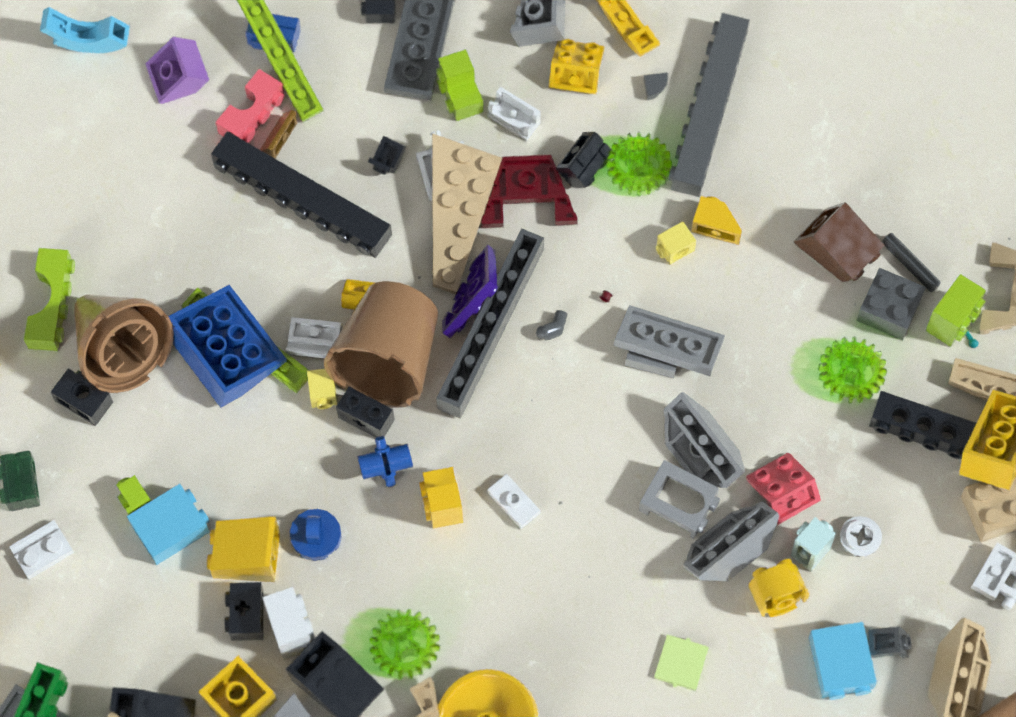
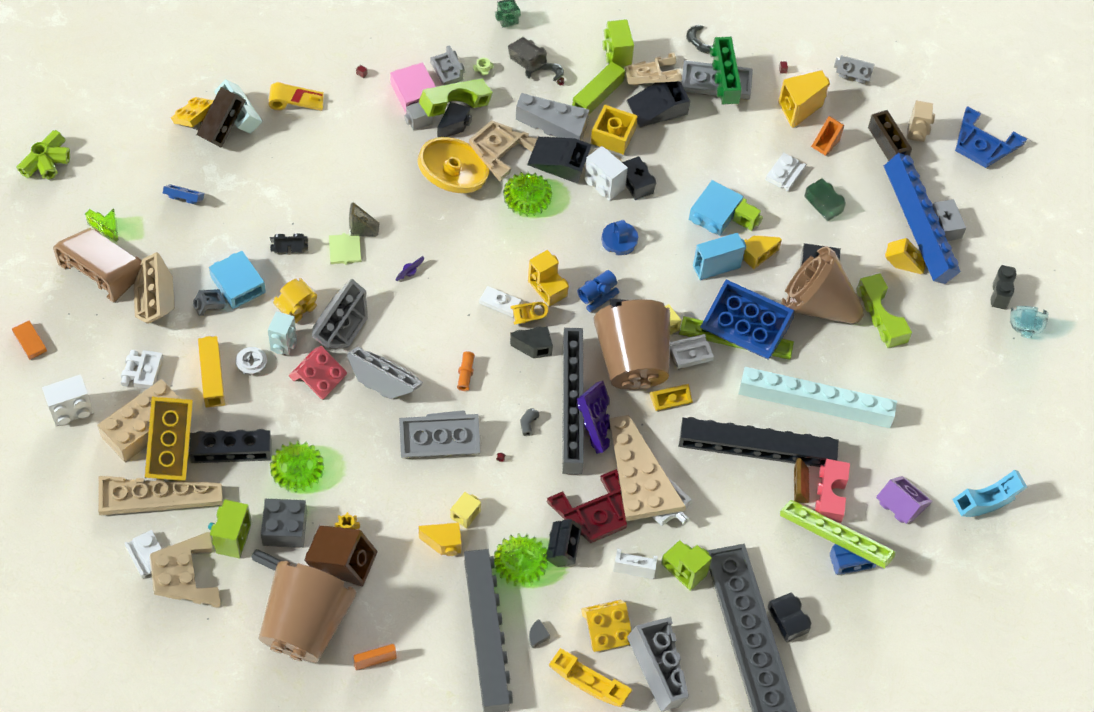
camera: 150 degrees right, 10 degrees down
(149, 441) = (760, 249): none -> yellow slope
(200, 220) = (817, 397): none -> light aqua brick
(209, 440) = (719, 256): none -> medium azure brick
(245, 549) = (656, 207): yellow slope -> none
(387, 155) = (712, 492): black bracket -> none
(483, 462) = (527, 312): none -> yellow piece
(499, 422) = (532, 342): none -> pearl dark grey slope
(600, 418) = (465, 371): none -> orange pin
(609, 593) = (410, 269): none -> dark purple piece
(644, 681) = (361, 222): none -> clear smoke slope
(690, 522) = (371, 344): light grey panel -> none
(742, 691) = (296, 242): none -> black hinge
(816, 281) = (347, 521): none -> yellow gear
(842, 120) = (374, 657): none -> orange tile
(906, 173) = (303, 611): none -> medium nougat cone
(916, 536) = (211, 371): none -> yellow brick

